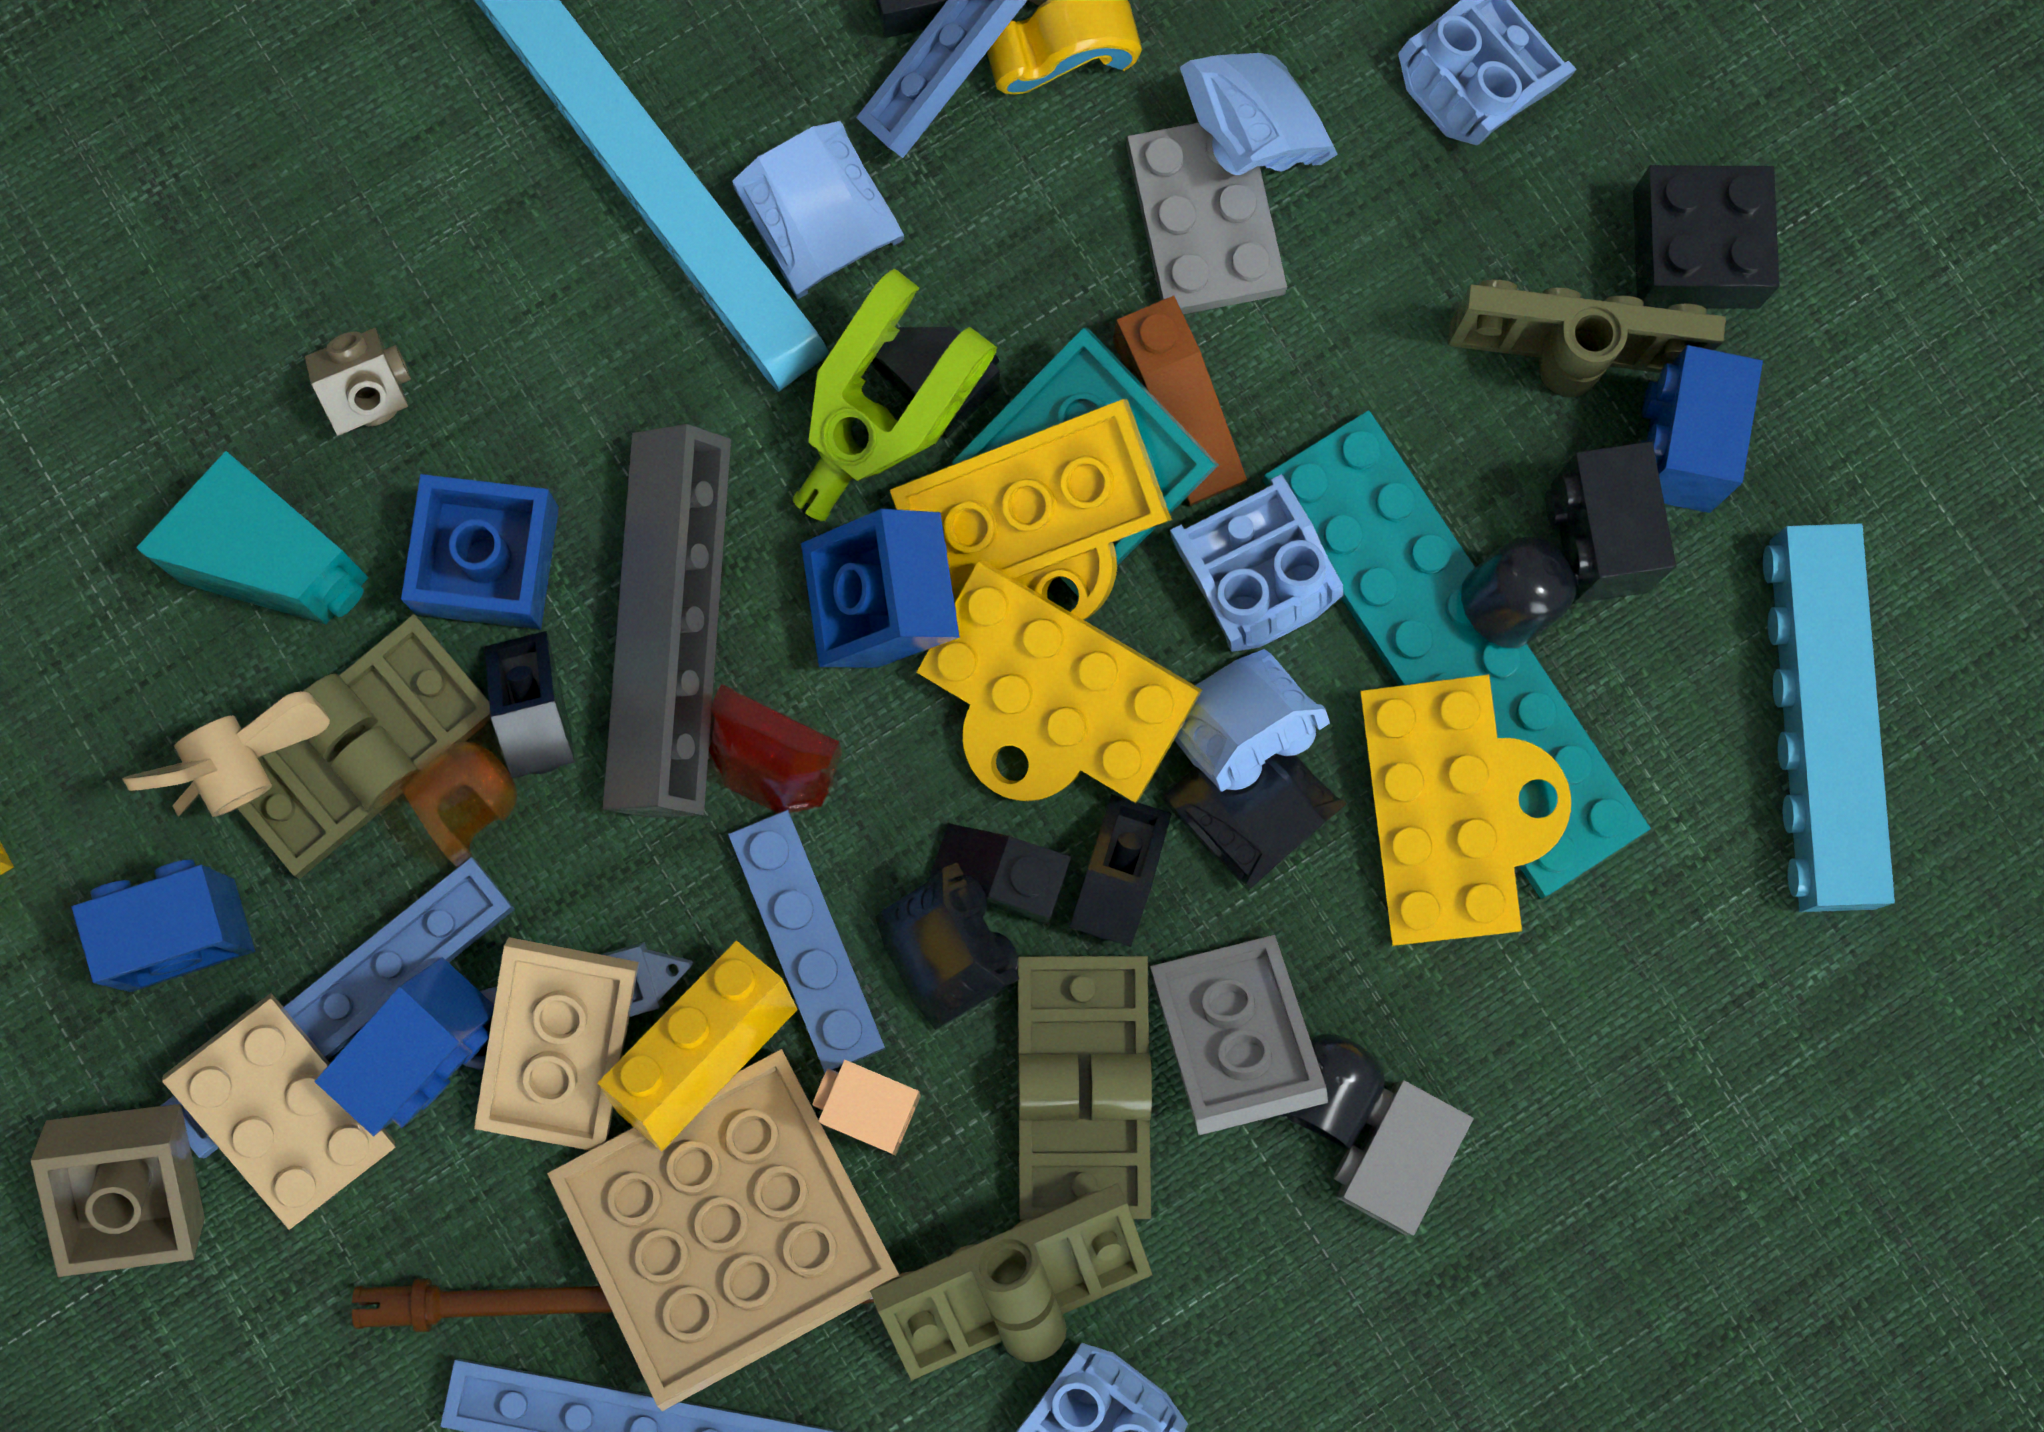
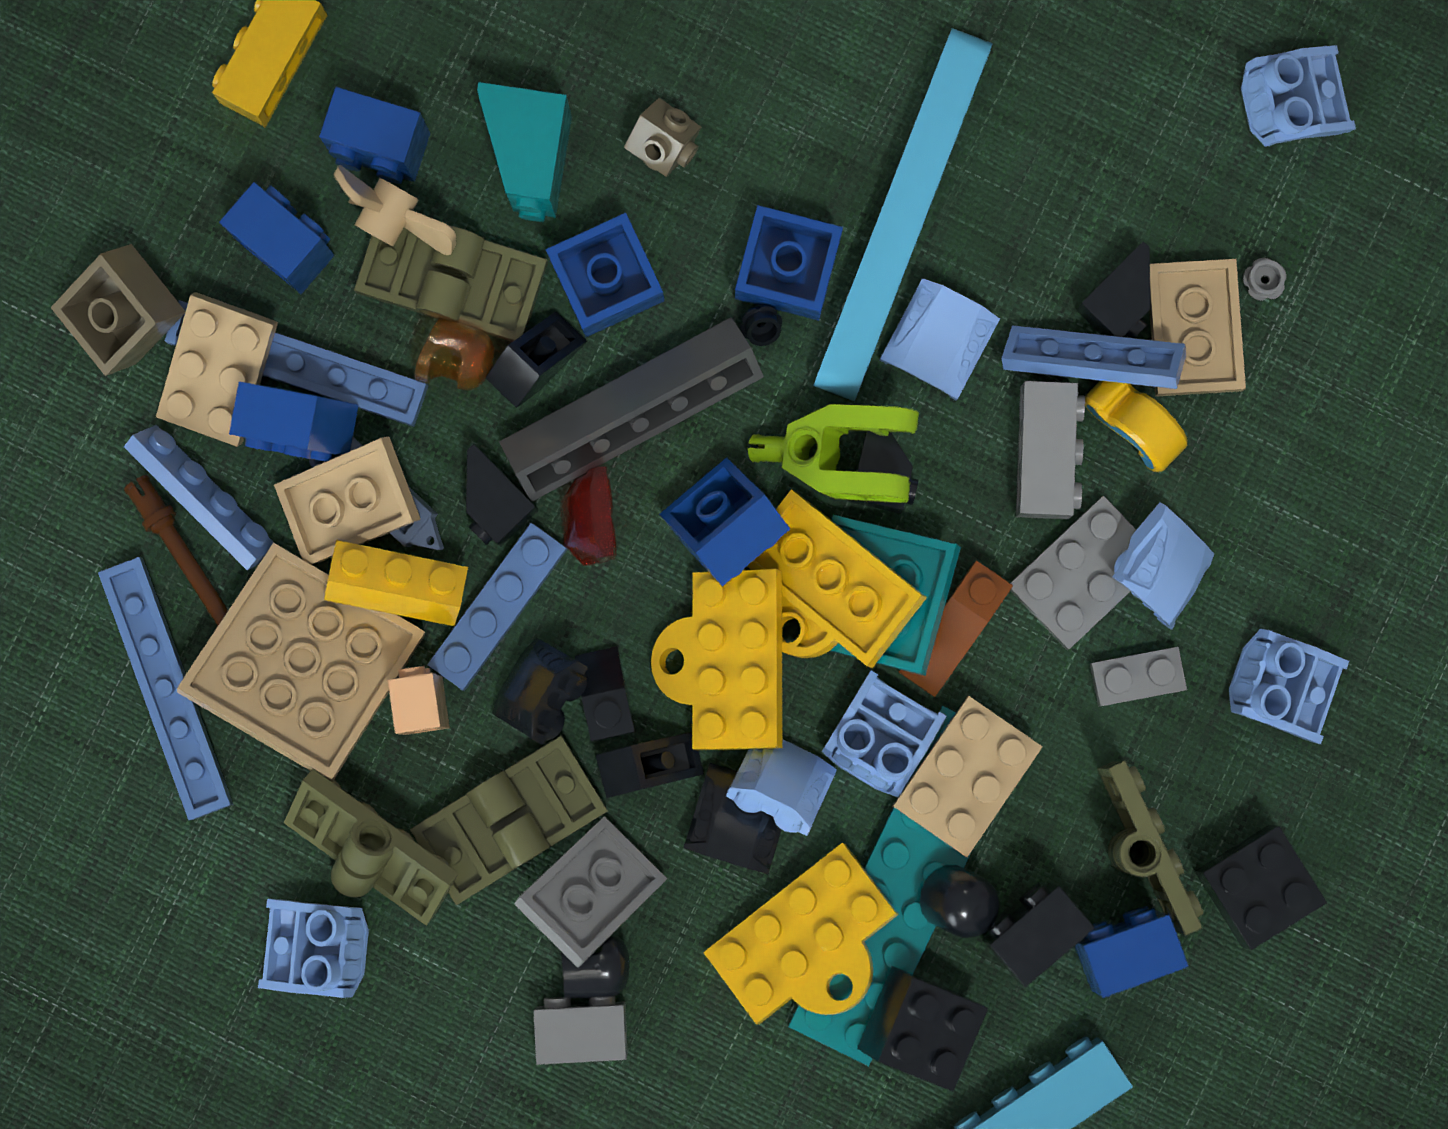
camera: 70 degrees right, 5 degrees up
(114, 725) = (374, 136): none -> blue brick
(427, 1232) = (200, 495): none -> medium blue plate
(611, 324) = (788, 262): none -> blue brick
(665, 403) = (761, 325): none -> black plate
(672, 861) = (493, 501): none -> black slope
(1033, 164) = (1049, 450): none -> light grey brick
(1368, 230) = (1138, 676): none -> light grey plate
(1370, 493) = (967, 776): none -> tan plate
(1646, 731) = (922, 1028): none -> black brick

